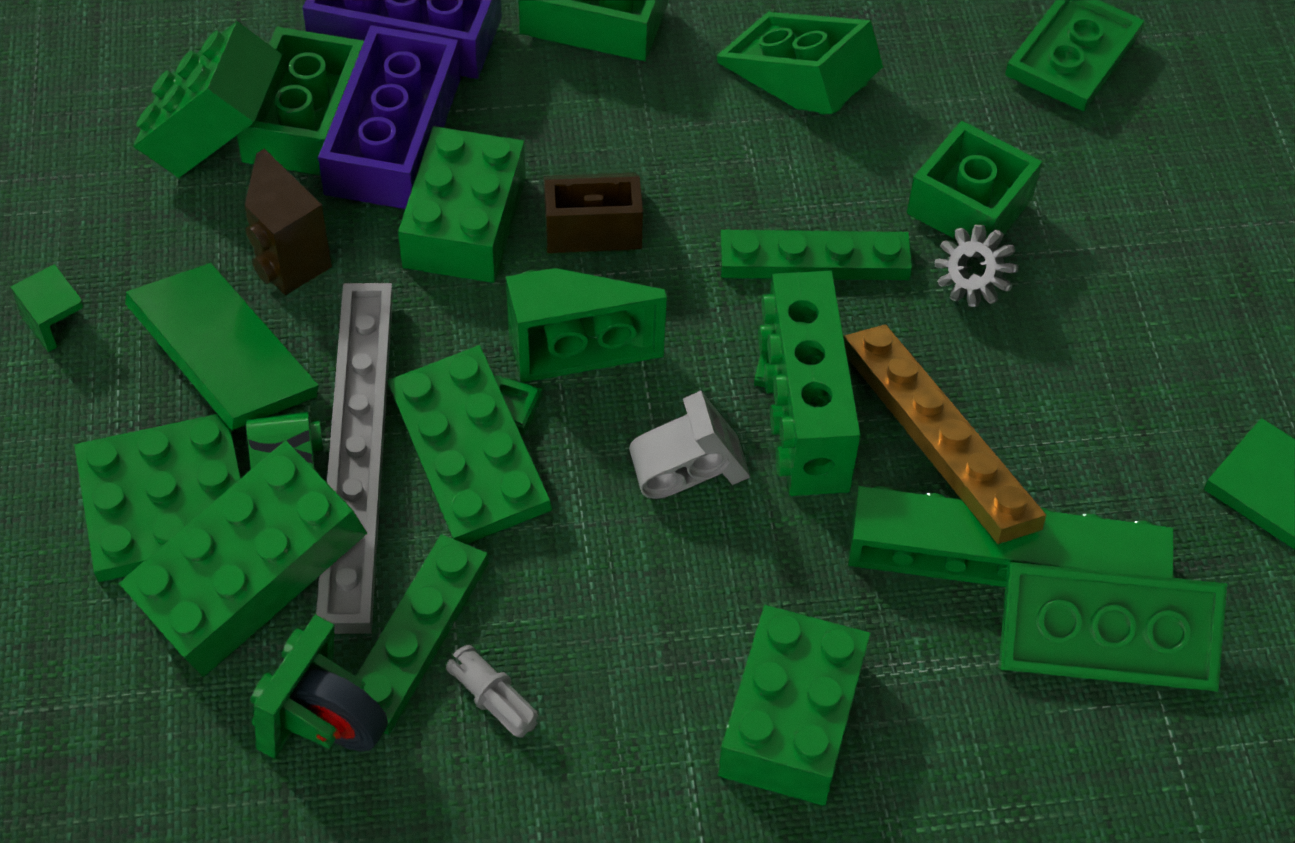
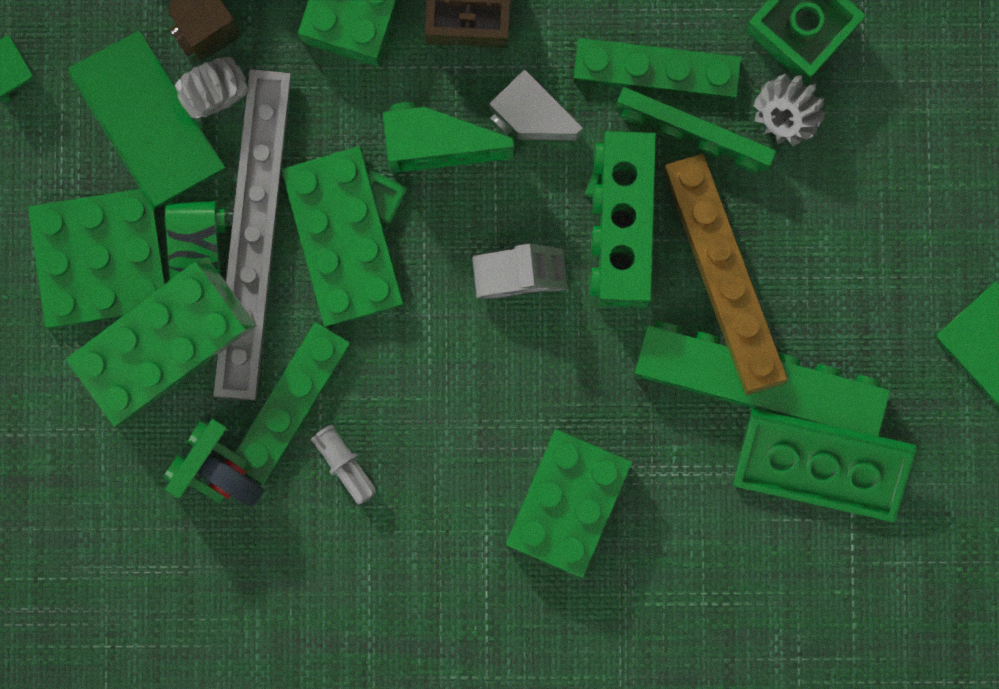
camera: 10 degrees right, 30 degrees up
(298, 298) = (211, 87): none -> light grey gear
(694, 299) = (532, 112): none -> light grey slope
(892, 303) = (710, 138): none -> green plate

